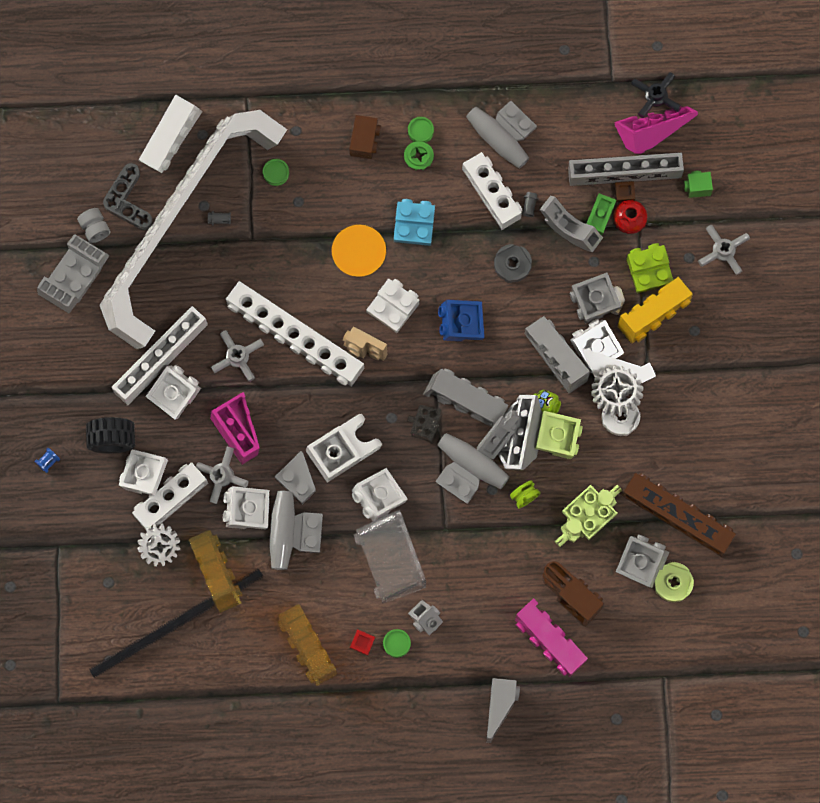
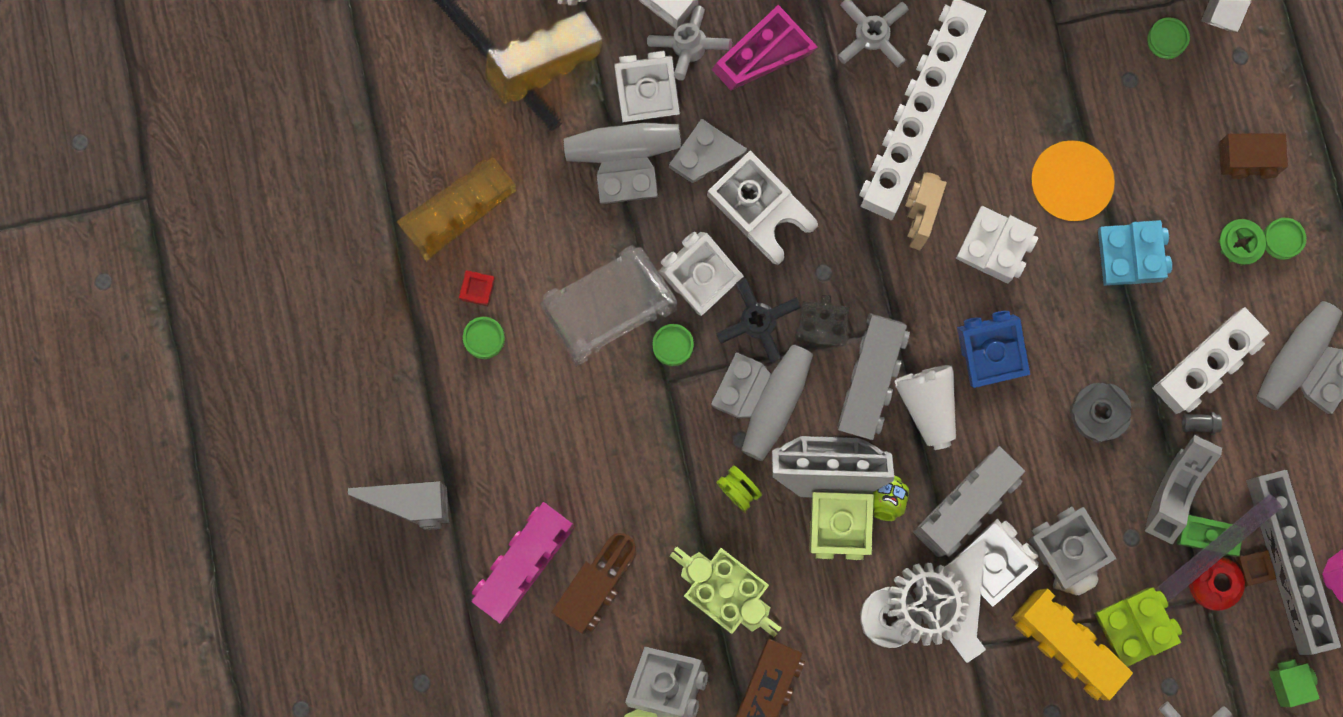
camera: 75 degrees right, 5 degrees up
(423, 467) = (752, 309): none -> black bar
(423, 521) = (673, 345): none -> bright green piece
(425, 617) = (525, 371): light grey brick -> none
(490, 365) = (931, 404): none -> white cone
(498, 435) = (823, 432): light grey hinge -> none
(610, 210) = (1219, 547): none -> axle

